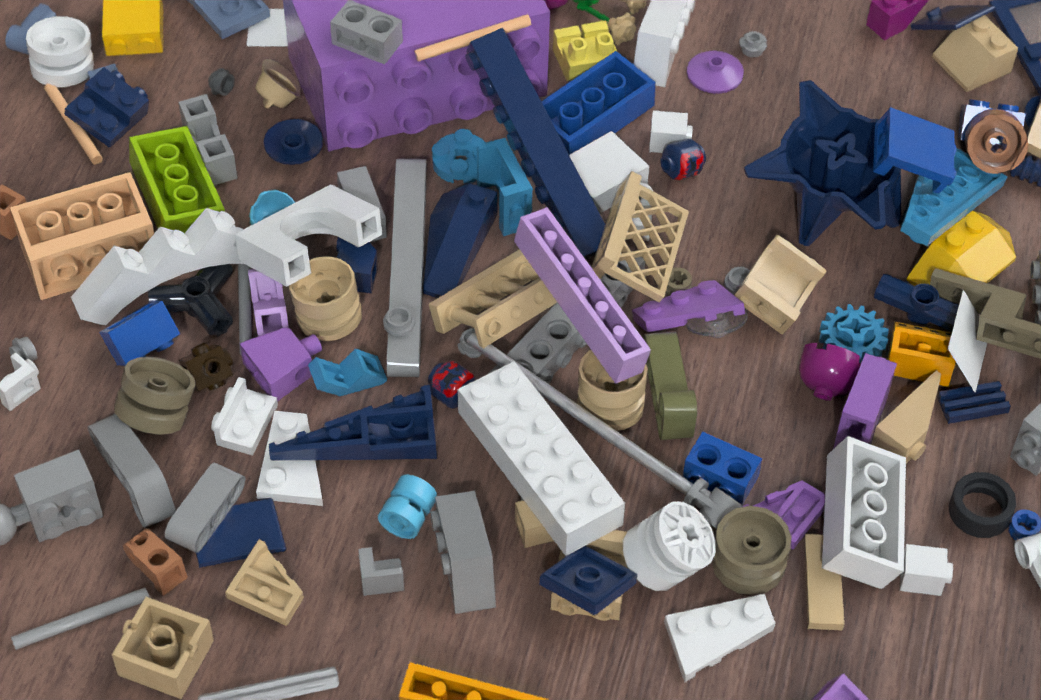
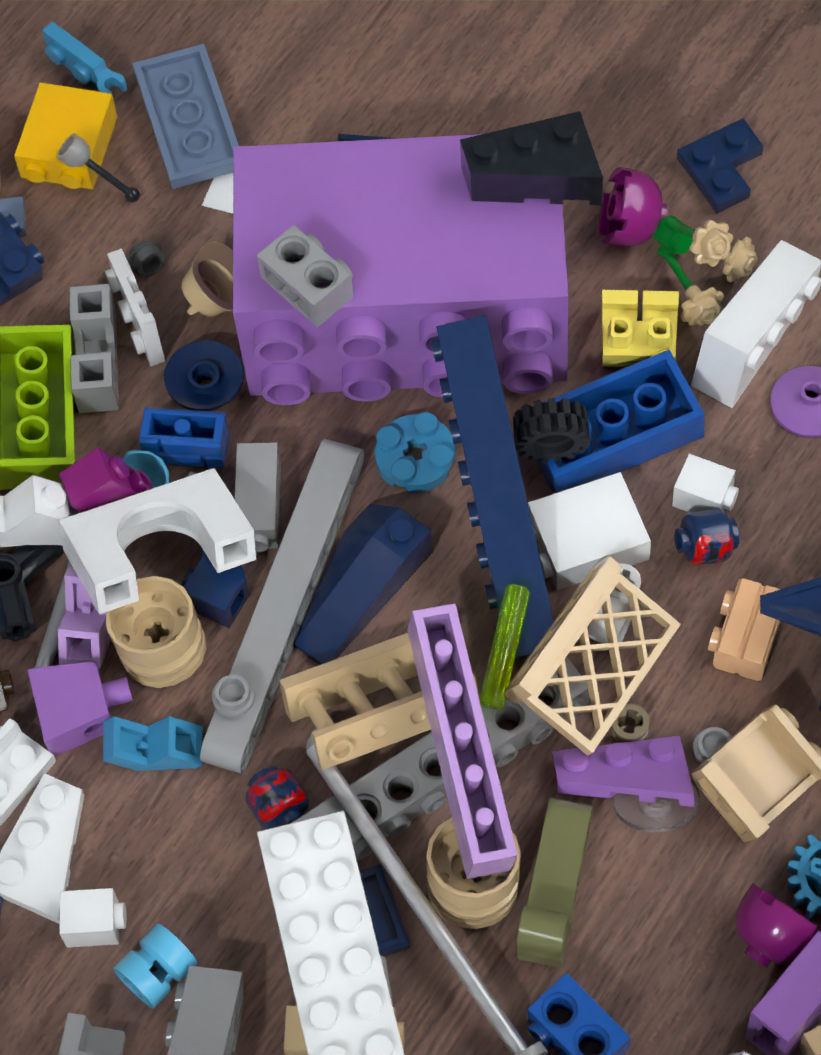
camera: 25 degrees right, 10 degrees up
(150, 21) = (76, 153): none -> hinge
(232, 113) = (134, 308): none -> white wing
(252, 205) = (101, 480): none -> magenta slope
(297, 175) = (186, 437): none -> blue brick
(347, 490) = (91, 917): none -> white brick
(381, 433) = (173, 848): dark blue wedge -> none
(465, 39) = (450, 312): light nougat bar -> none
(500, 168) = (446, 553): dark azure panel -> none
(565, 104) = (551, 430): none -> black tyre
(578, 228) = (504, 646): none -> clear neon green axle
(733, 206) = (747, 634): none -> light nougat brick

